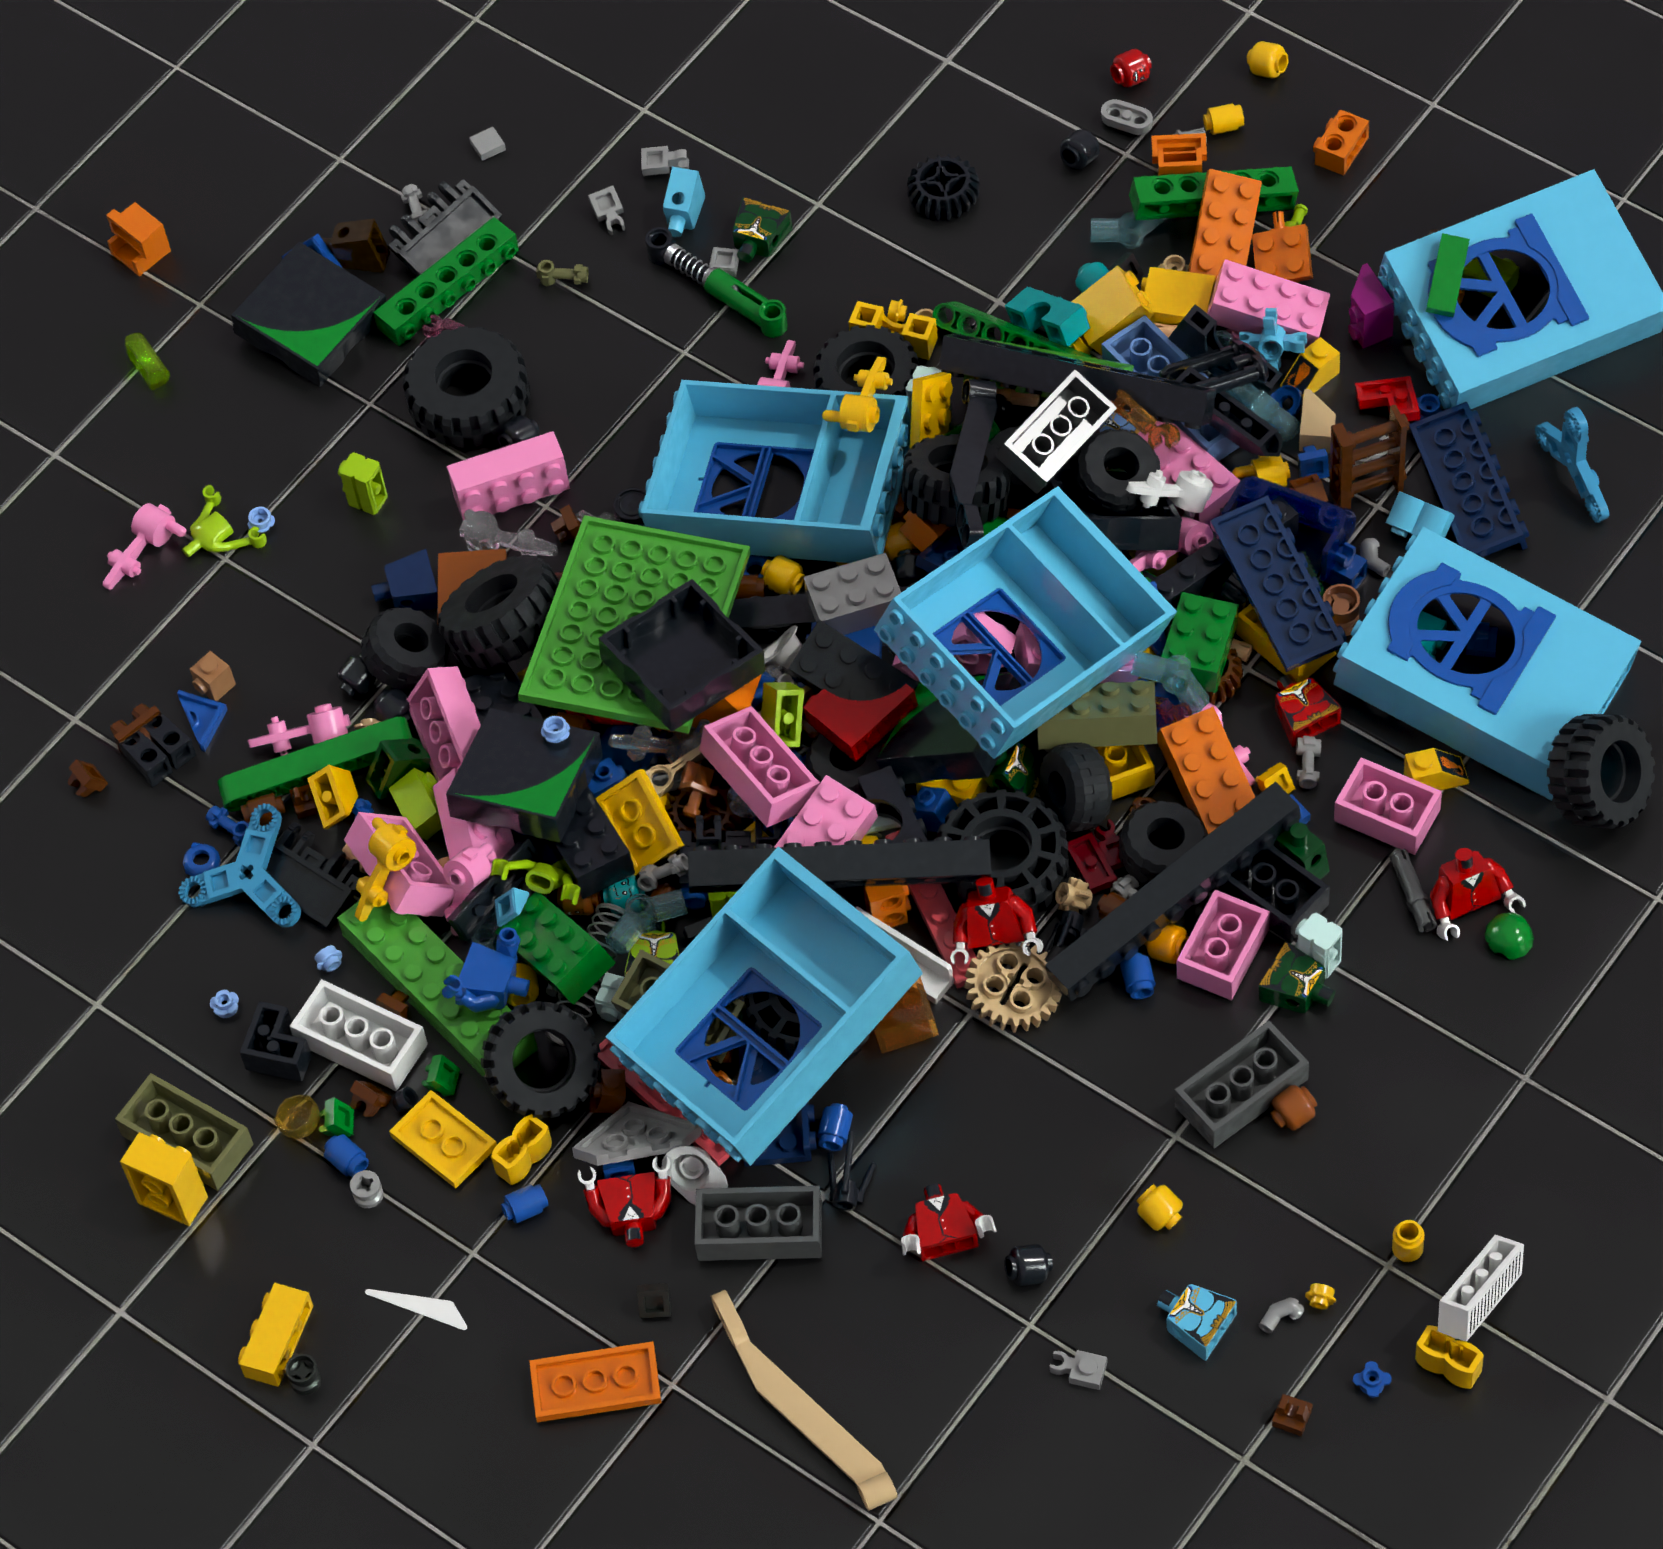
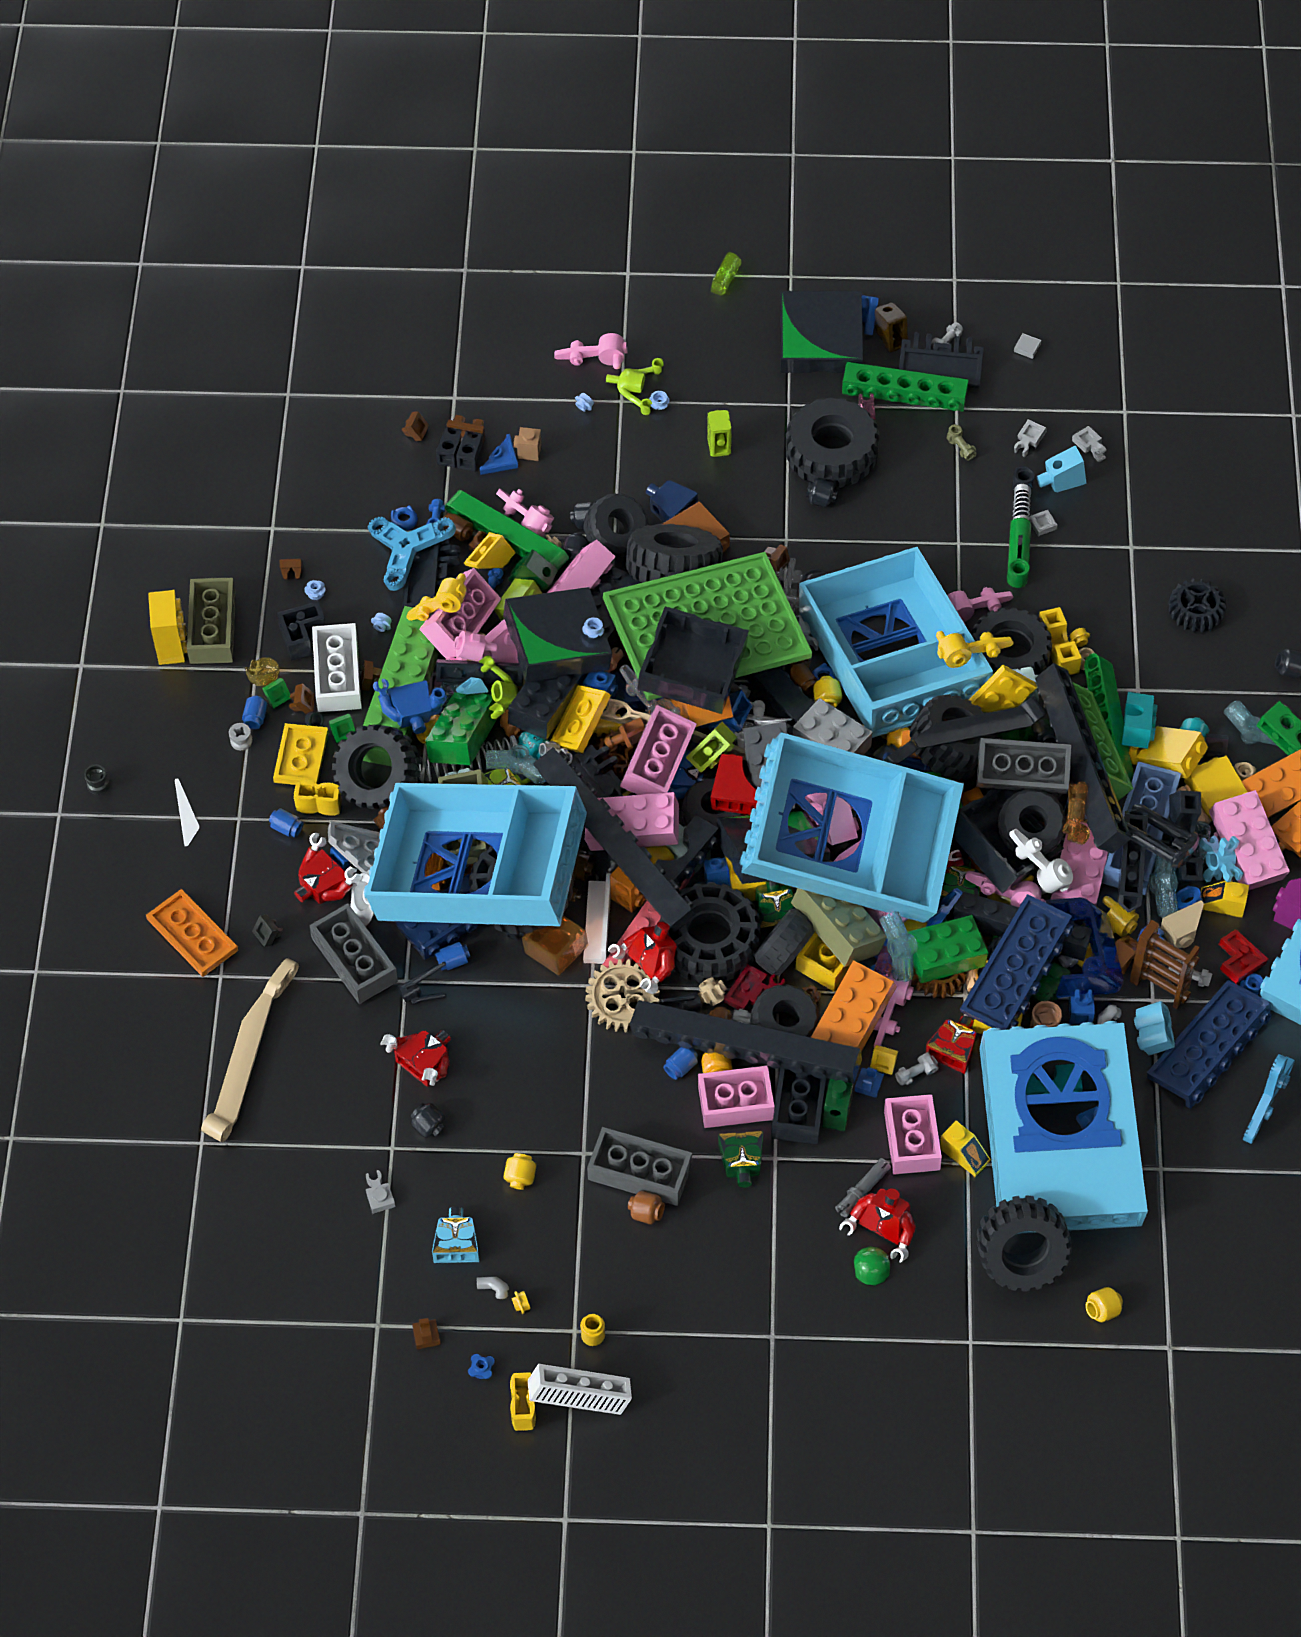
camera: 50 degrees right, 0 degrees up
(137, 239) = (805, 214): orange plate -> none
(169, 1013) = (288, 564): none -> reddish brown tile
(199, 592) = (584, 402): none -> light blue plate
(275, 1334) = (114, 748): yellow brick -> none
(482, 533) = (734, 521): clear piece -> none
(510, 476) = (782, 504): bright pink brick -> none
(759, 229) = (1079, 525): dark green torso -> none
(1320, 941) = (773, 1152): light aqua brick -> none

